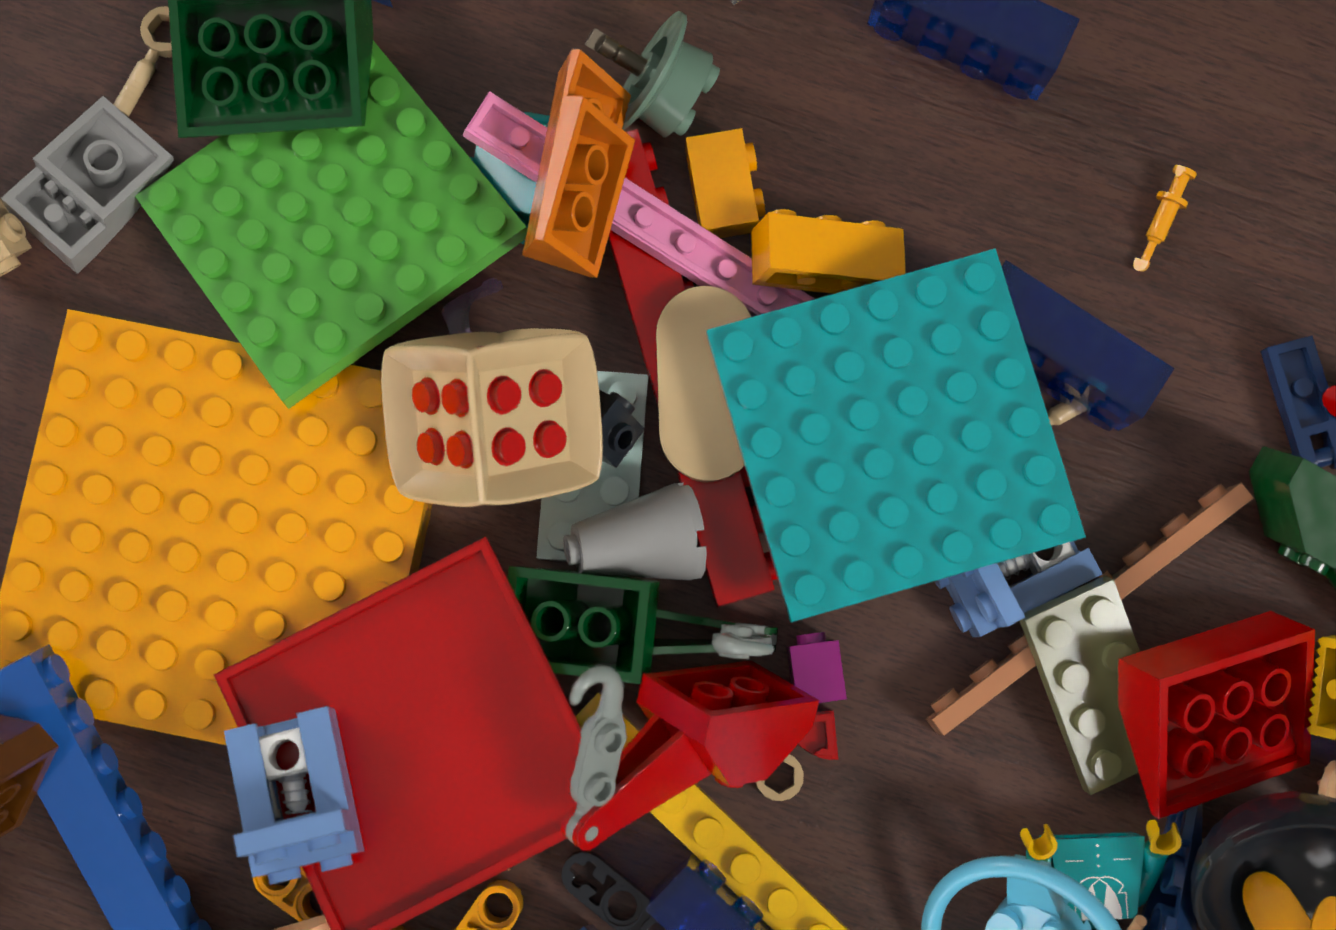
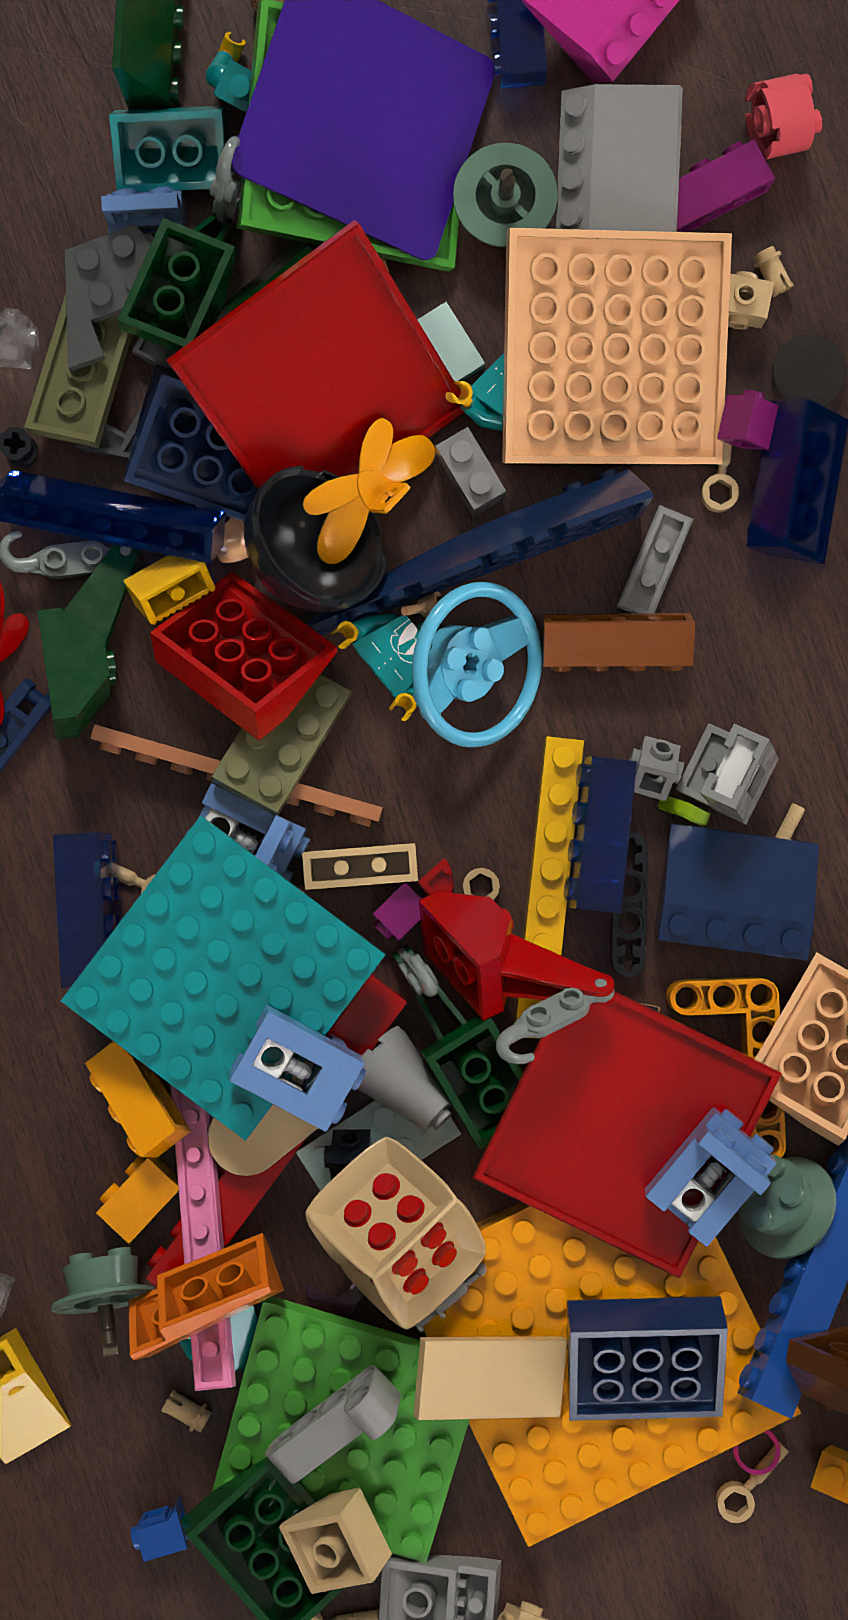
camera: 125 degrees left, 5 degrees up
(159, 577) = (646, 1358): none -> dark blue slope
(189, 847) = (791, 1211): none -> sand green piece
(225, 121) = (337, 1542): none -> tan slope
(268, 398) = (489, 1377): none -> tan tile
(343, 244) = (361, 1405): none -> light grey beam
(378, 425) = (455, 1296): none -> light grey piece
(470, 73) = (187, 1411): none -> tan pin
(705, 468) = (324, 1085): none -> medium blue brick
(897, 664) = (360, 866): none -> tan brick

